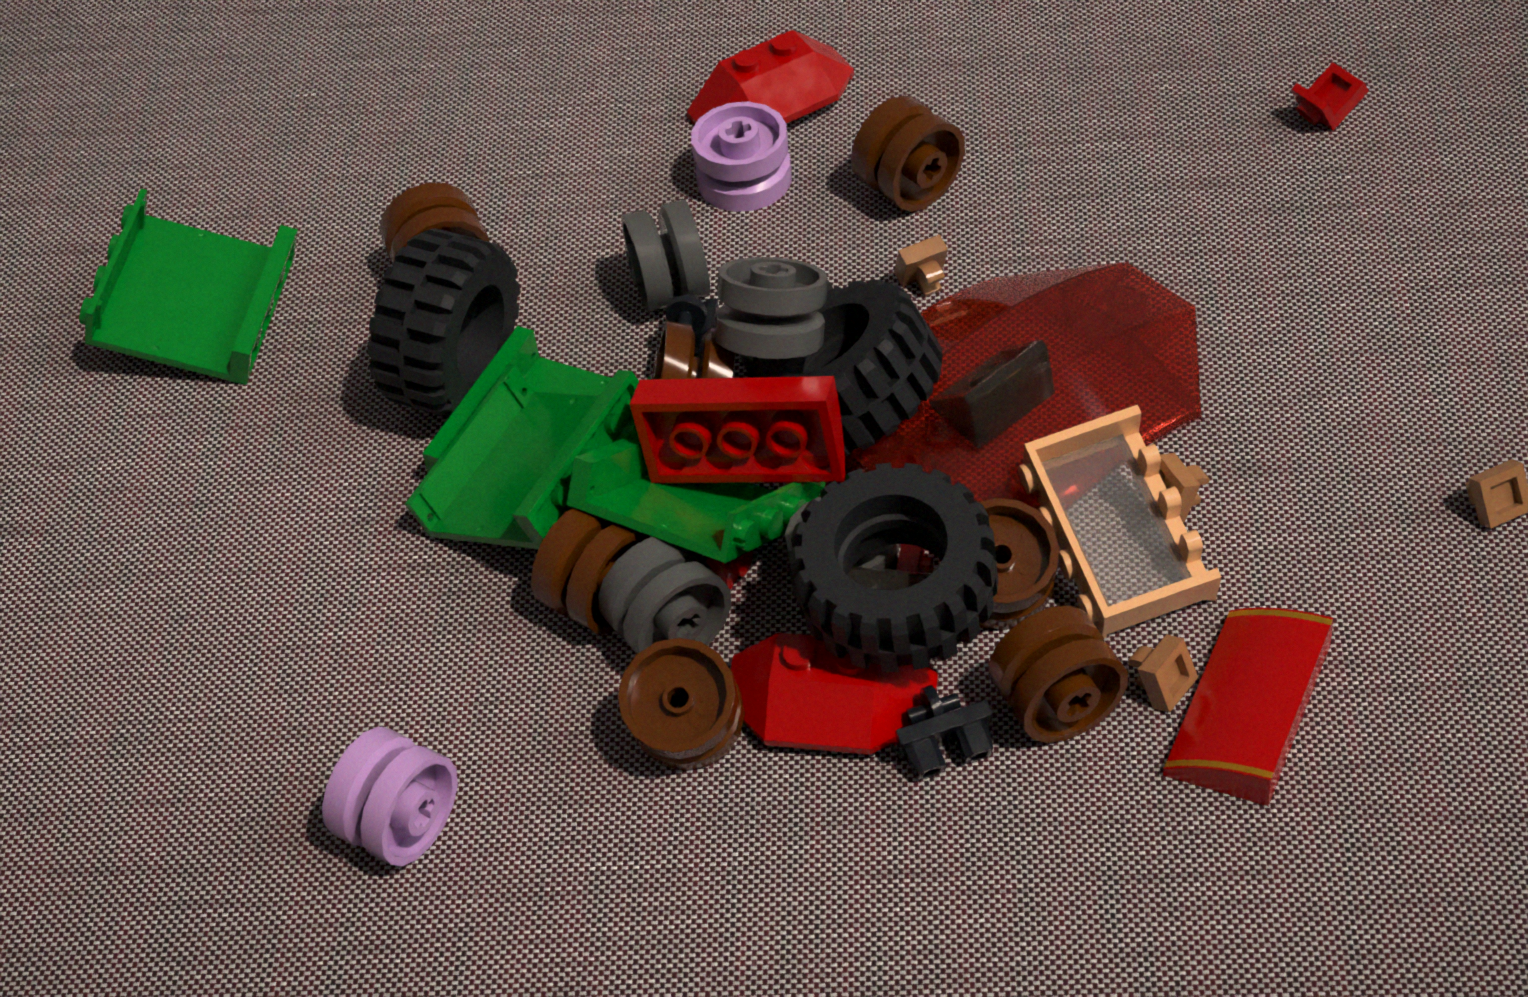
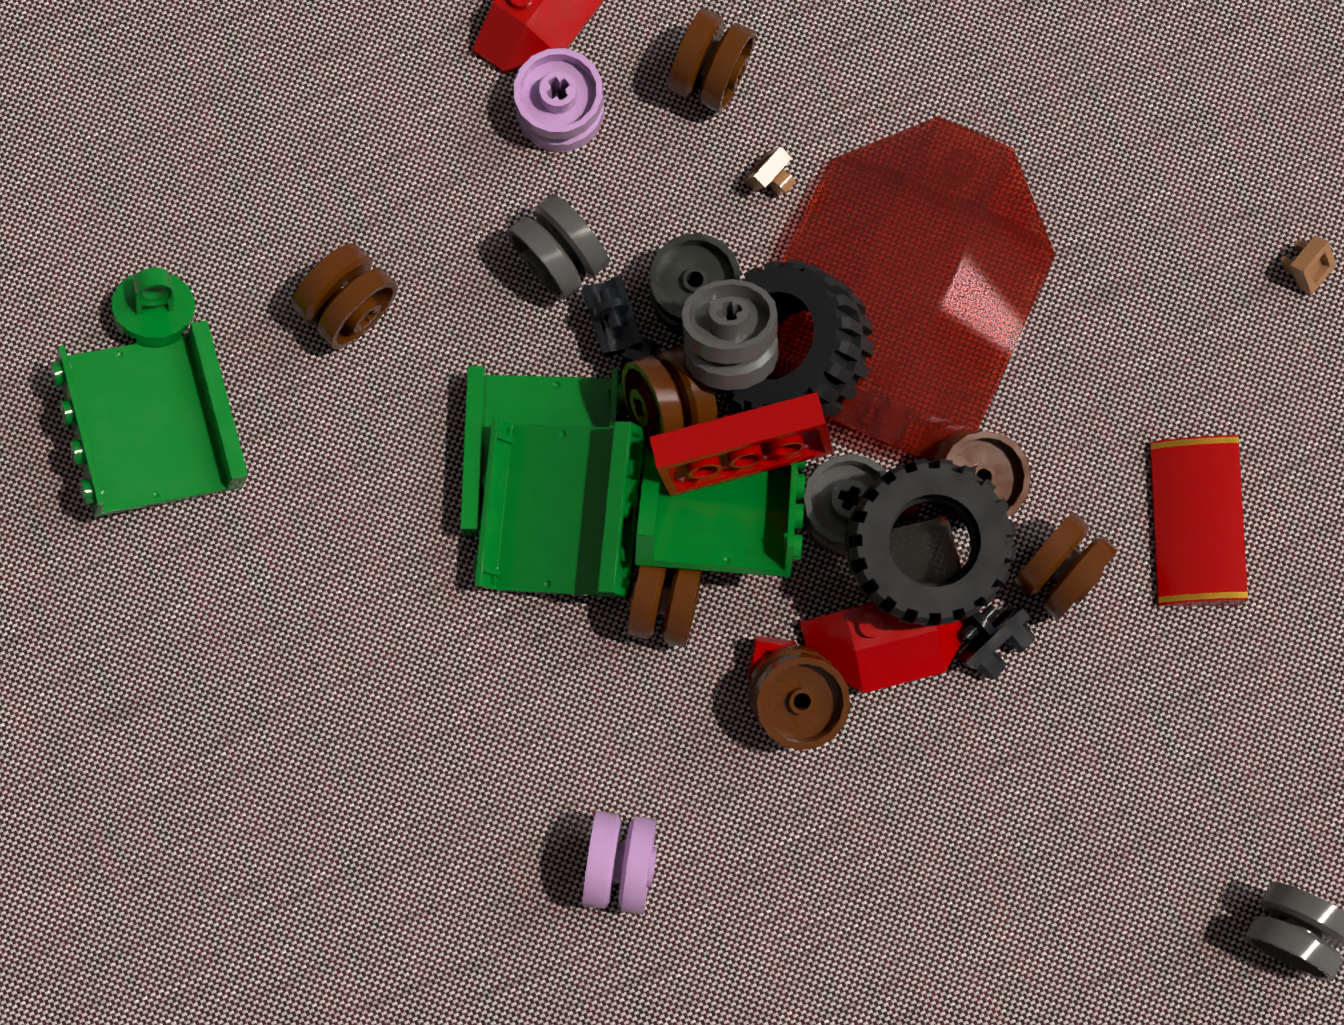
camera: 30 degrees left, 30 degrees up
(255, 214) = (153, 307): none -> green tile
(441, 319) = (423, 404): black tyre -> none
(663, 595) = (742, 609): dark grey wheel -> none
(998, 392) = (917, 325): clear smoke slope -> none
(1116, 522) = (1049, 405): window -> none
(1164, 671) = (1130, 524): medium nougat tile -> none
(1184, 478) = (1069, 343): medium nougat tile -> none

